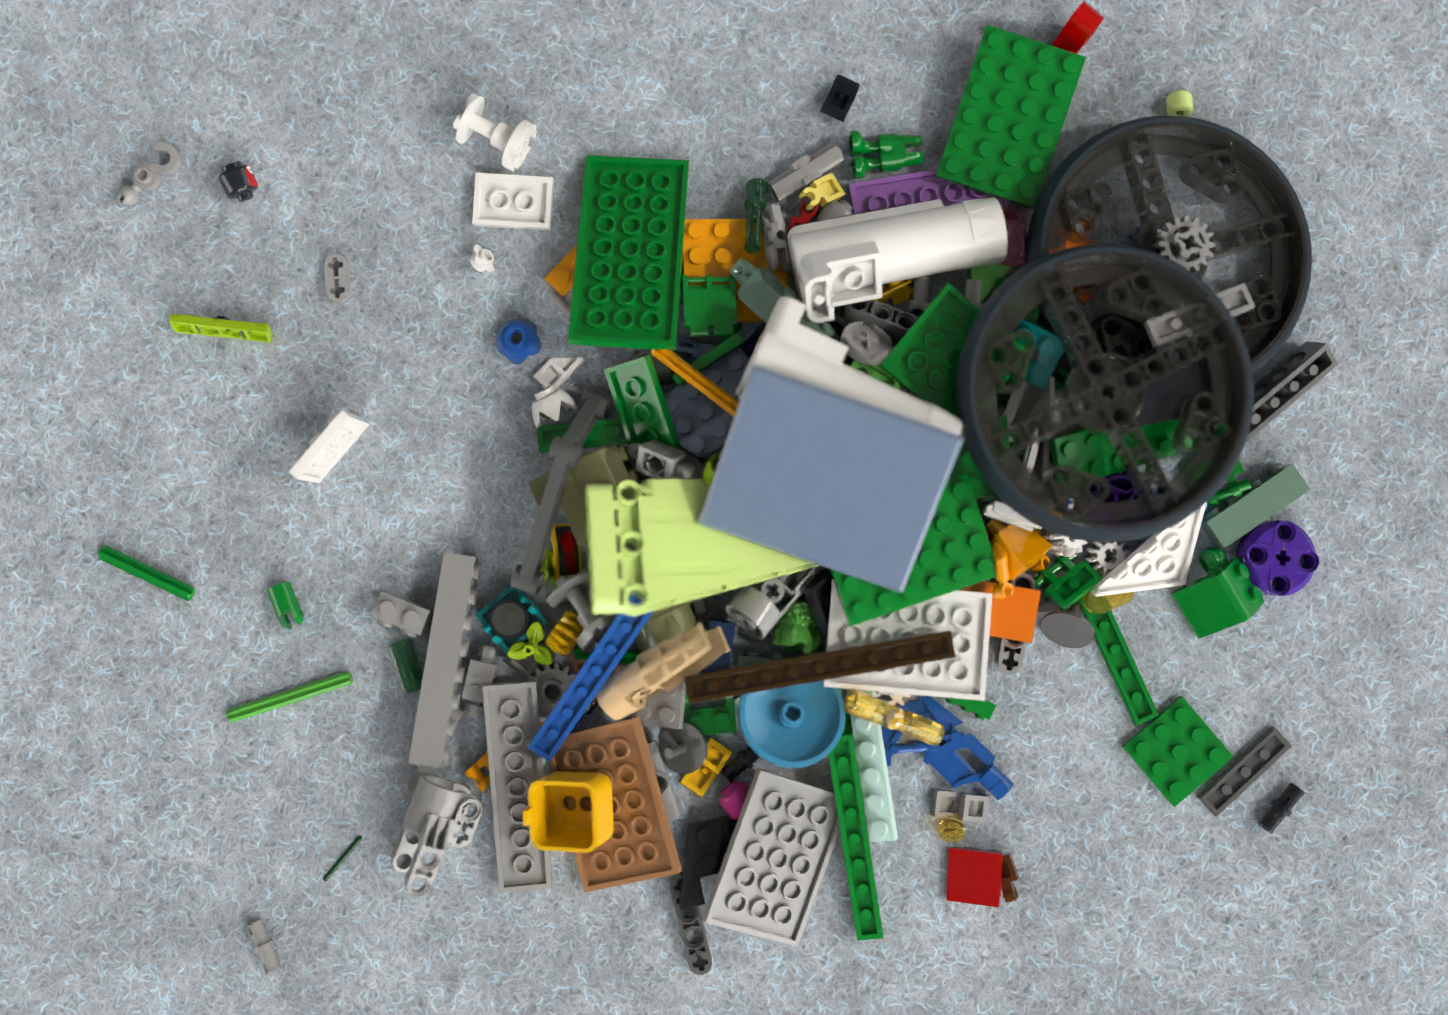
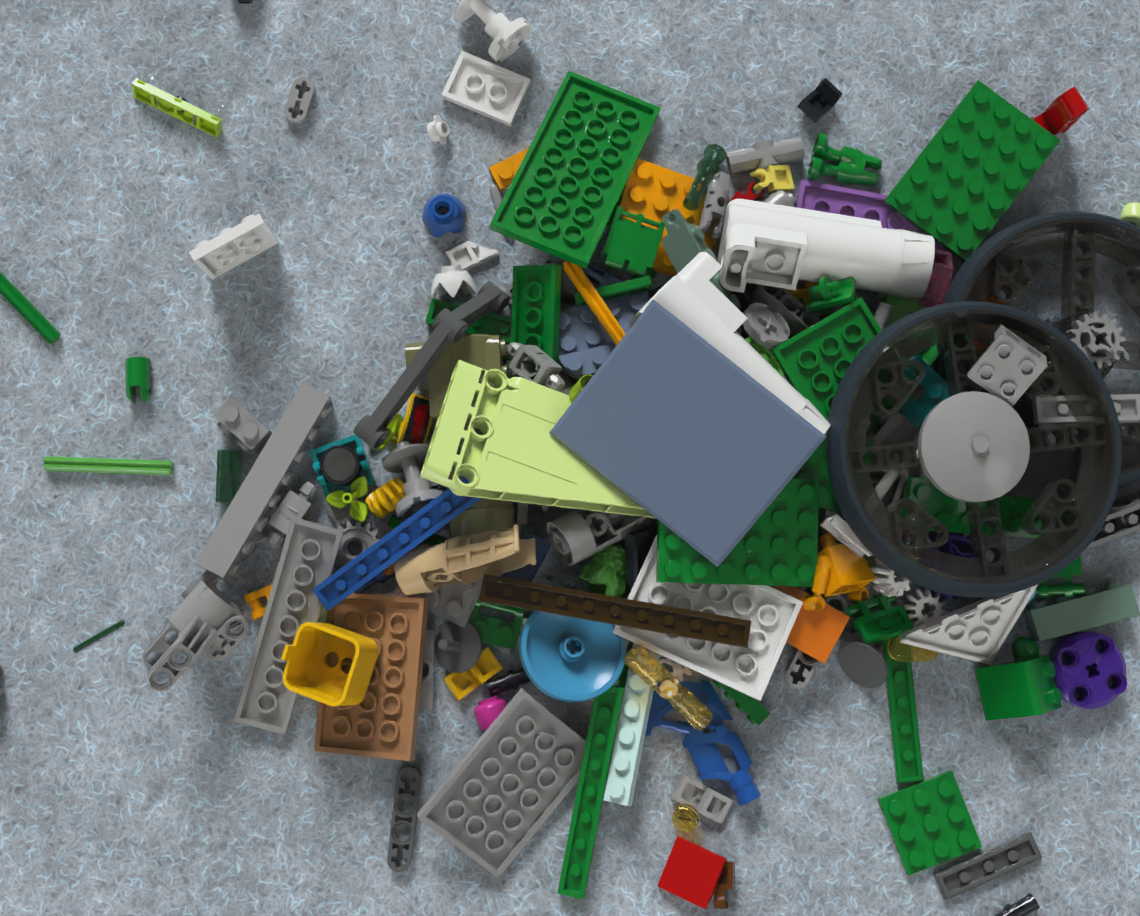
camera: 15 degrees right, 5 degrees down
(703, 856) = (439, 757): black wing -> none
(918, 288) = (831, 294): none -> green hips
(1105, 394) = (973, 447): none -> light grey dish
(1113, 305) = (1008, 366): none -> light grey bracket

